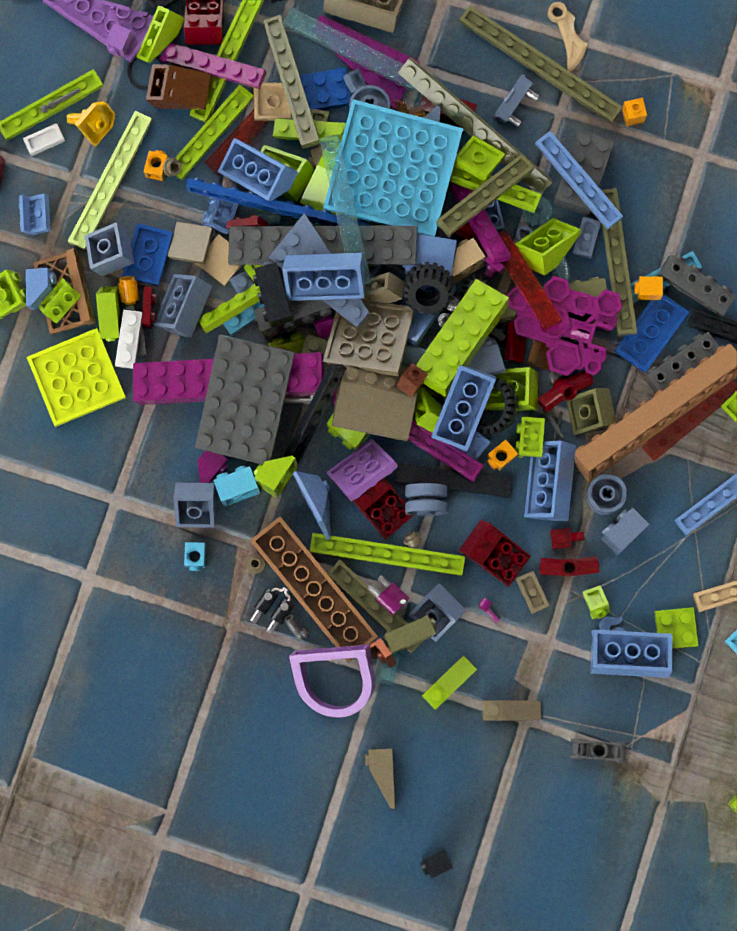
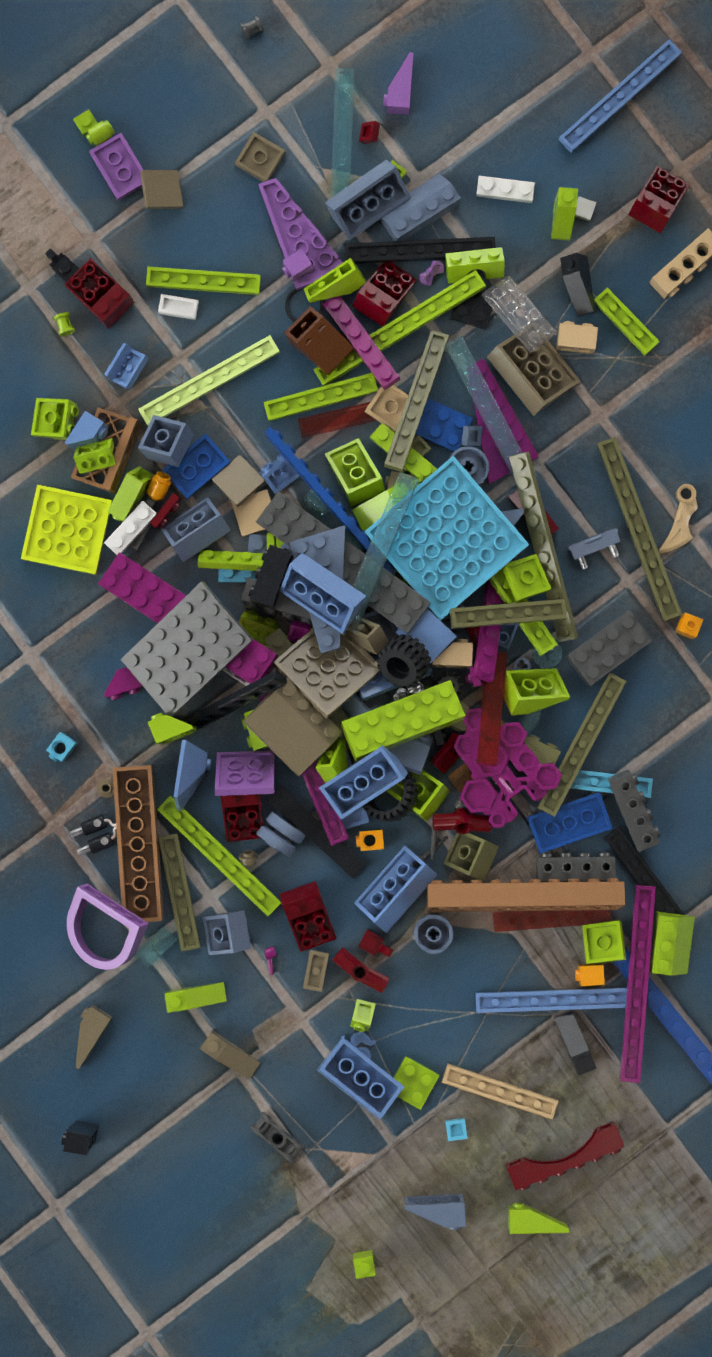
camera: 30 degrees right, 5 degrees up
(52, 104) = (203, 282): dark grey piece -> none
(94, 121) = (228, 321): yellow piece -> none
(152, 172) = (252, 402): light orange brick -> none
(176, 166) = (269, 409): dark tan plate -> none
(195, 504) = (88, 706): sand blue brick -> none
(236, 486) = (133, 714): medium azure brick -> none
(253, 221) = (300, 500): dark red plate -> none
(257, 170) = (334, 459): medium blue slope -> none
(295, 628) = (102, 869): dark grey arm -> none
(380, 650) = (154, 930): copper bracket -> none
(391, 598) = (196, 895): magenta piece -> none
(410, 634) = (187, 938): olive window -> none
(411, 380) = (334, 730): copper brick -> none
(416, 111) = (499, 498): clear orange panel -> none
(531, 437) = (404, 842): lime bracket -> none
(579, 180) = (597, 654): medium blue plate -> none
(586, 240) = (568, 709): sand blue plate -> none
(626, 529) = (426, 974): sand blue brick -> none
(649, 288) = (592, 786): light orange brick -> none

